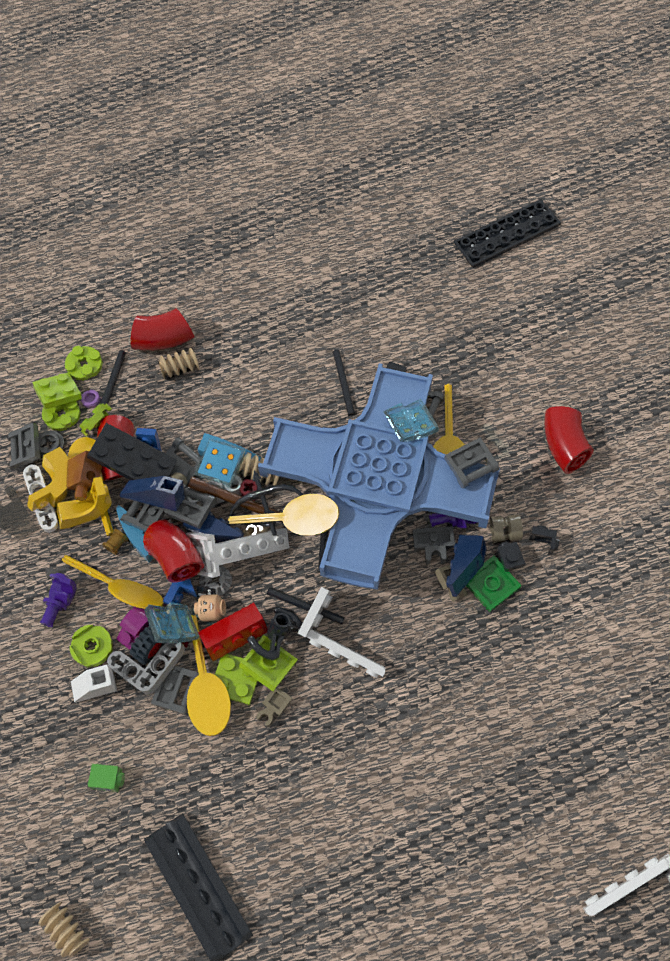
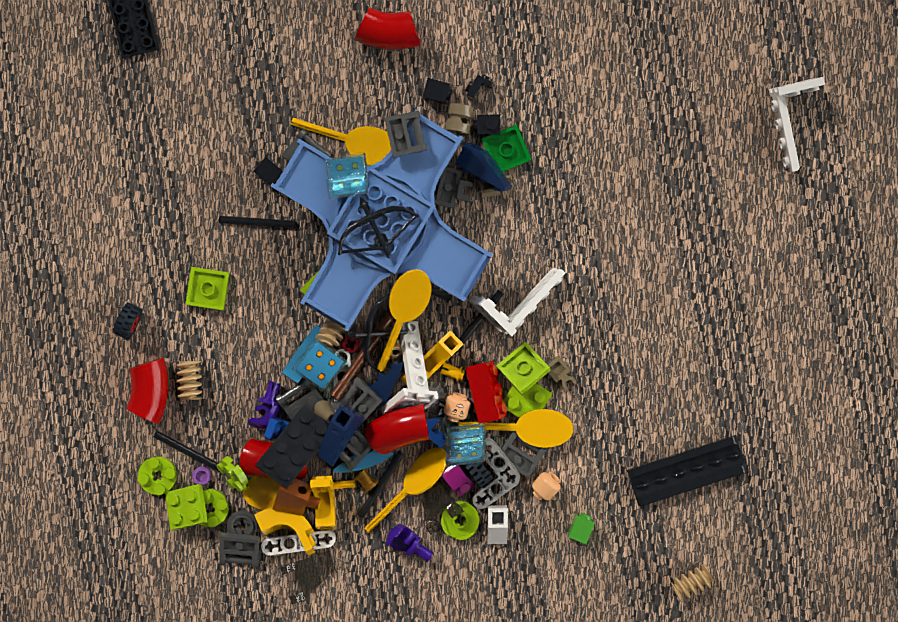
camera: 80 degrees left, 25 degrees up
(106, 616) = (436, 500): none -> clear smoke flag
(114, 559) = (380, 485): none -> black bar
(145, 725) = (546, 486): none -> light nougat head
(170, 434) = (269, 405): none -> dark purple piece
(220, 299) = (127, 320): none -> black wheel
(246, 595) = (456, 373): none -> yellow pin
(260, 574) = (439, 353): none -> yellow arch
(268, 357) = (207, 288): none -> lime plate
(279, 628) = (498, 353): black piece -> none
(359, 466) = (380, 238): none -> black piece
(525, 501) = (437, 91): none -> black brick

